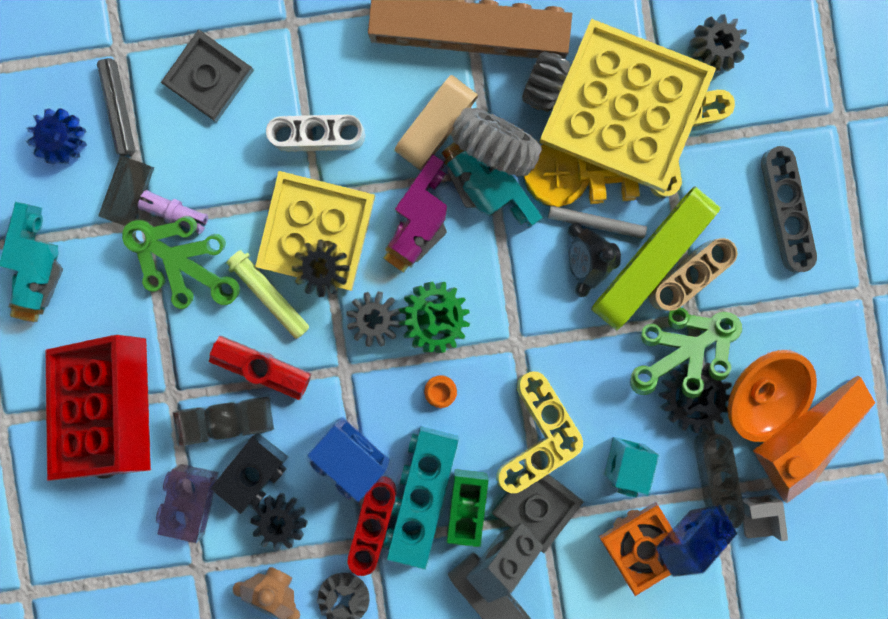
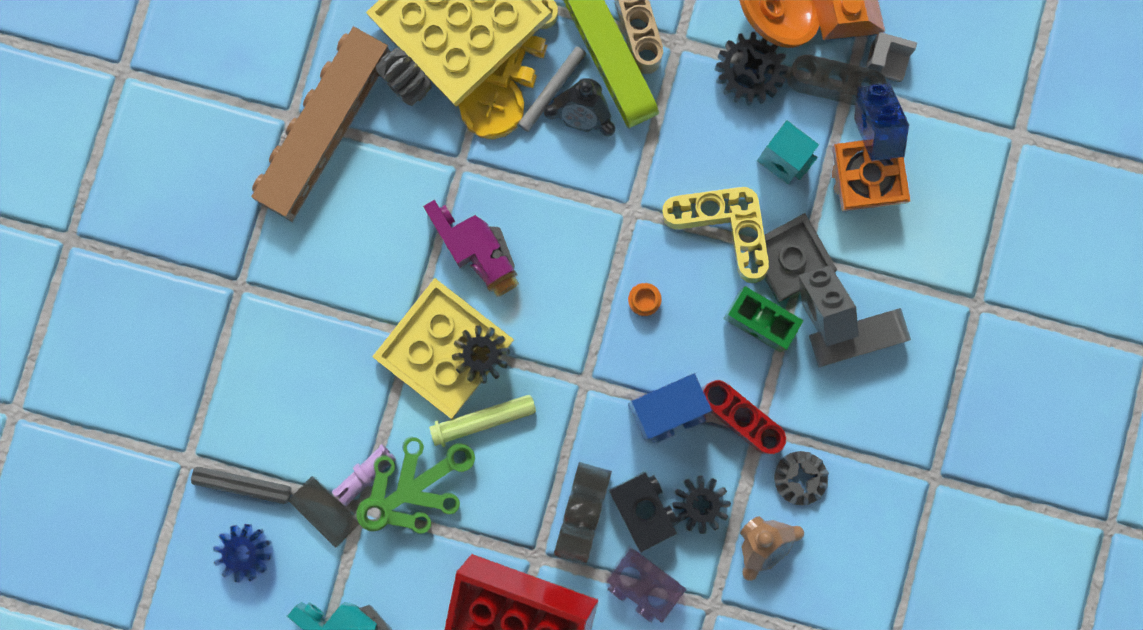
camera: 70 degrees left, 5 degrees down
(207, 75) = (252, 386): dark grey tile -> none
(241, 359) = (531, 473): red piece -> none
(302, 125) = (353, 323): white beam -> none
(369, 308) = (538, 331): dark grey gear -> none
(415, 548) = (781, 382): teal brick -> none
(421, 318) = (573, 272): green gear -> none
(435, 122) = (394, 193): tan beam -> none
(487, 189) = (477, 174): teal plate -> none
(496, 142) = (438, 143): light grey gear -> none
(689, 348) = (704, 56): bright green plant -> none

